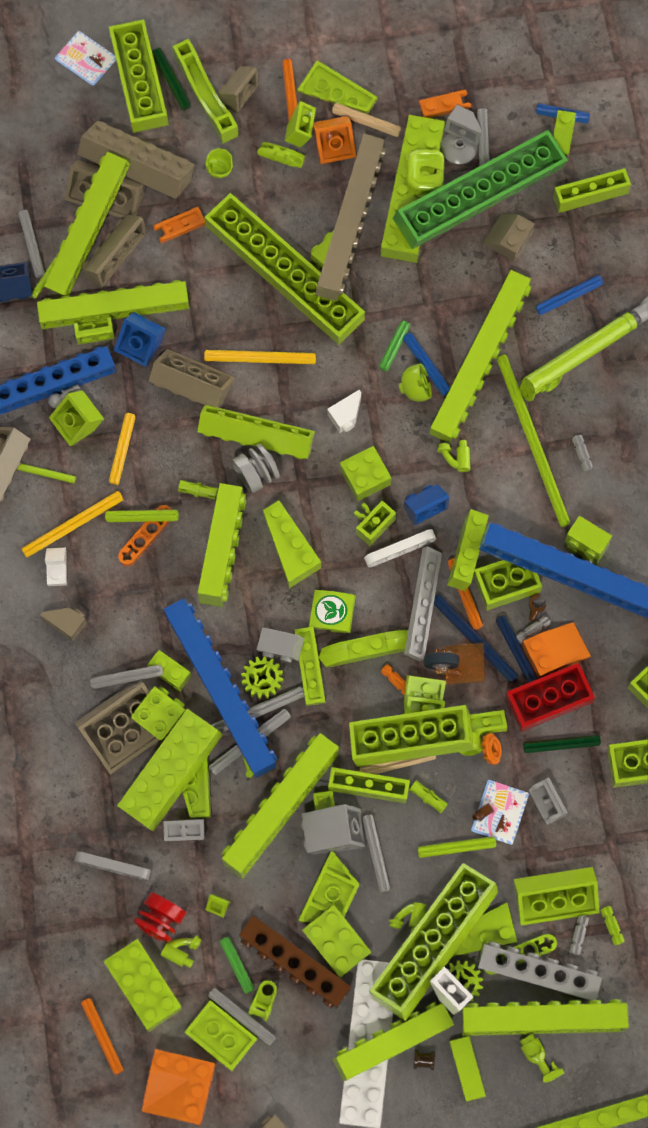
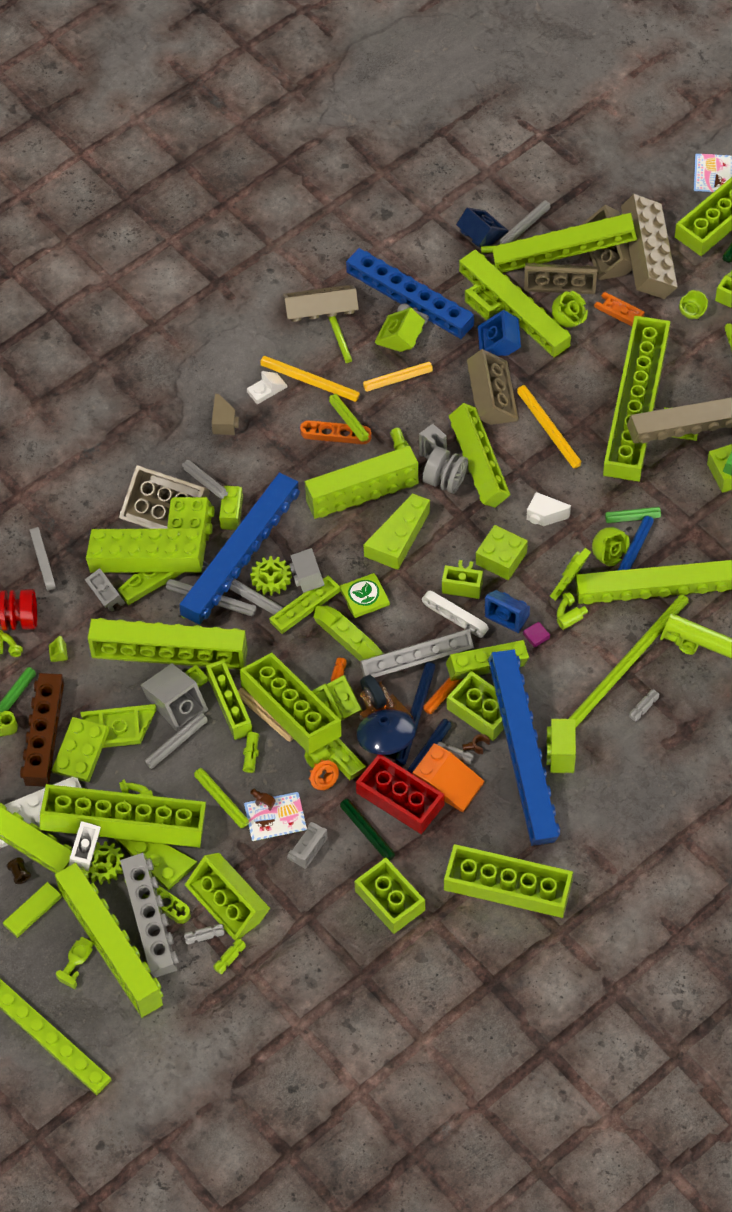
camera: 60 degrees right, 15 degrees down
(156, 266) = (569, 309): none -> lime cylinder
(220, 458) = (430, 439): none -> light grey hinge
(428, 429) = (570, 572): none -> lime wing
(460, 495) = (536, 634): none -> magenta tile
(494, 682) = (386, 732): none -> dark blue dish

